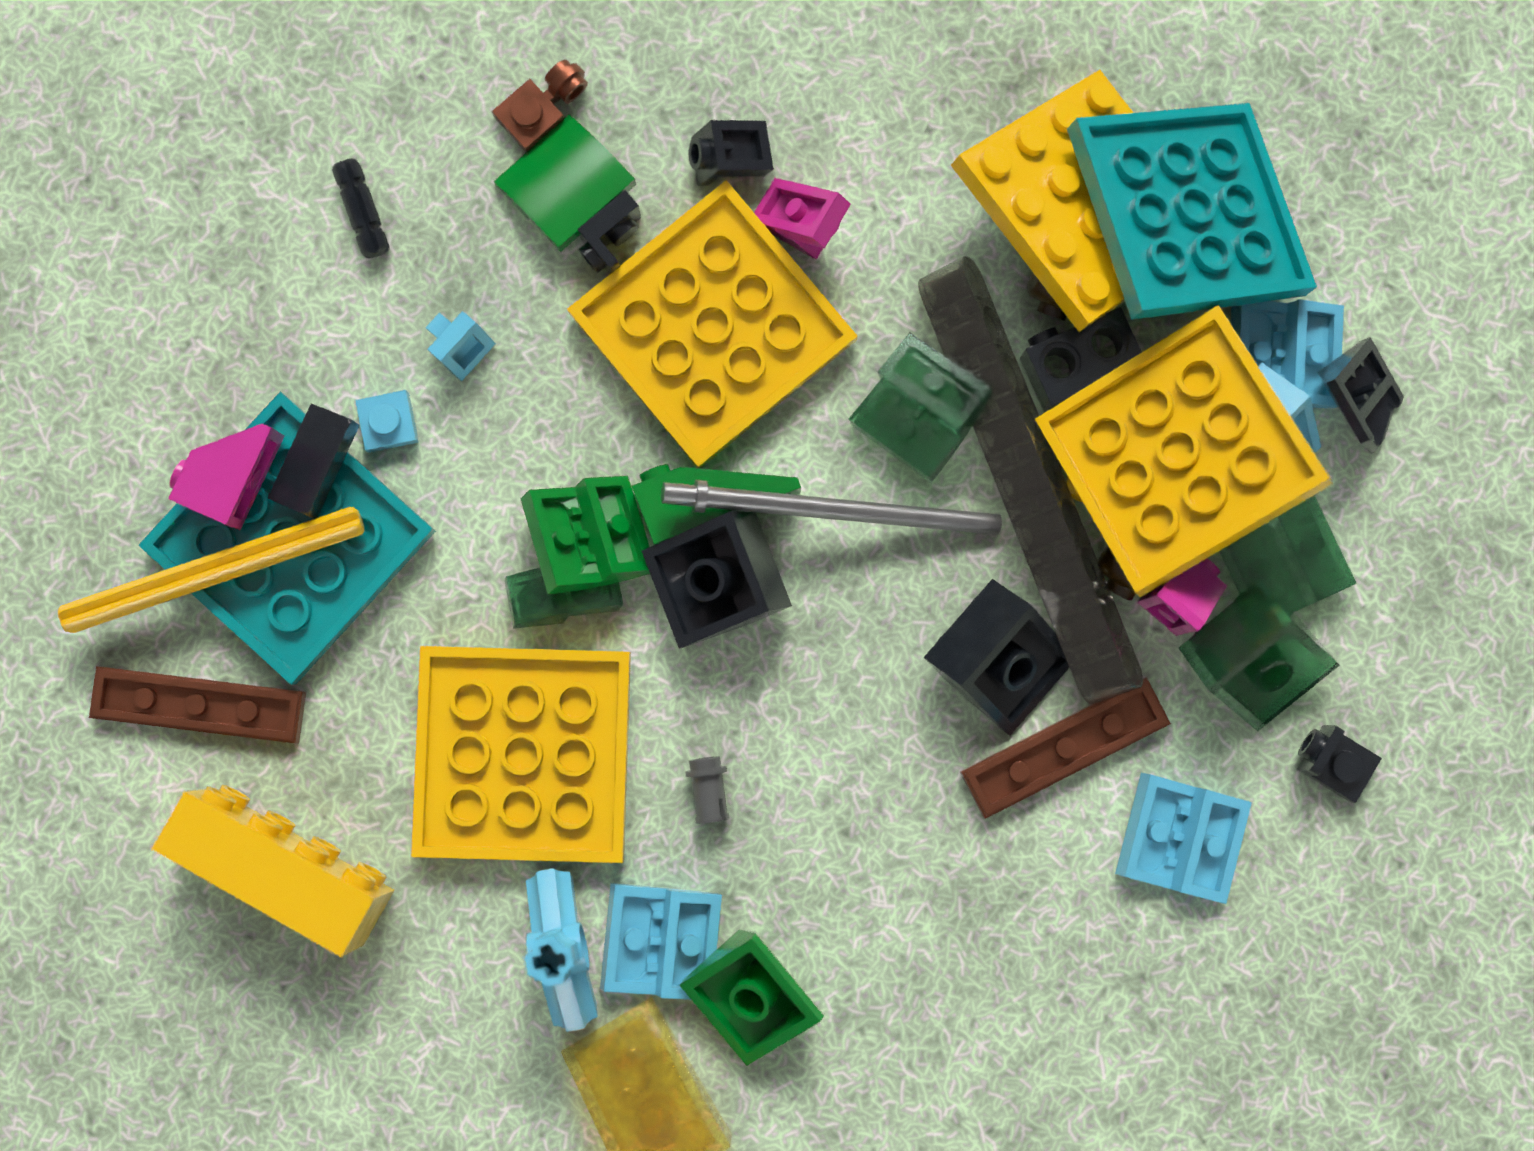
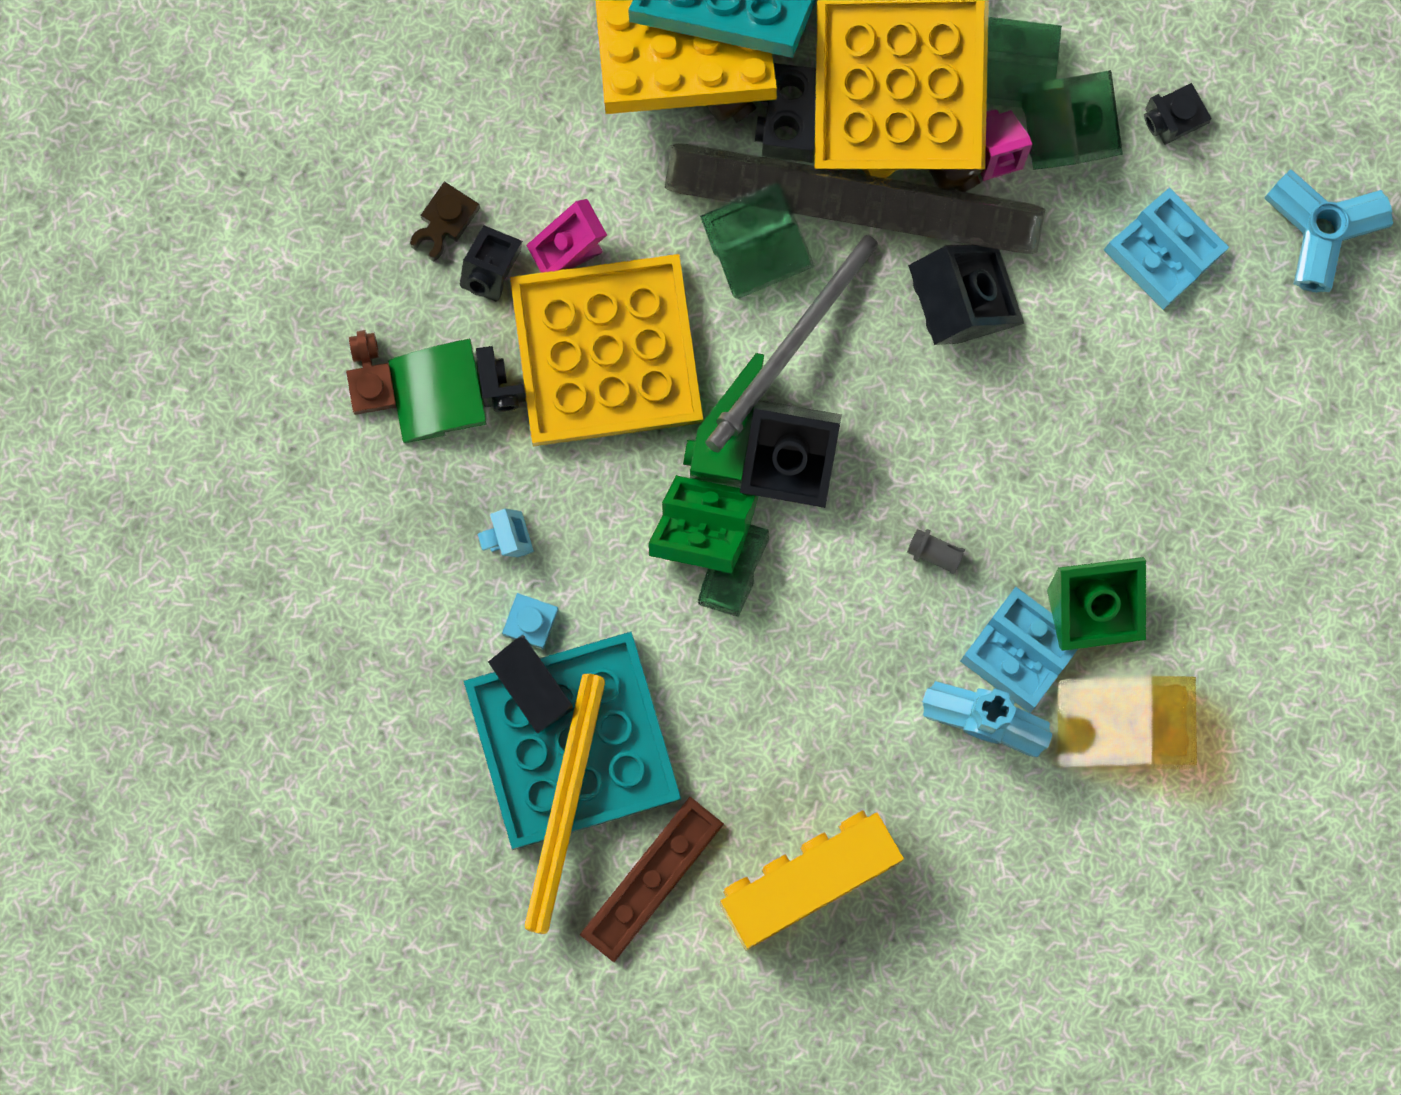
camera: 60 degrees left, 5 degrees down
(226, 474) = (504, 751): dark pink slope -> none
(360, 208) = (362, 547): black axle -> none
(521, 754) = (830, 666): yellow plate -> none
(756, 79) = (447, 215): none -> dark brown plate
(1063, 749) = (1055, 292): copper tile -> none
(1281, 1005) = (1321, 250): none -> medium azure piece

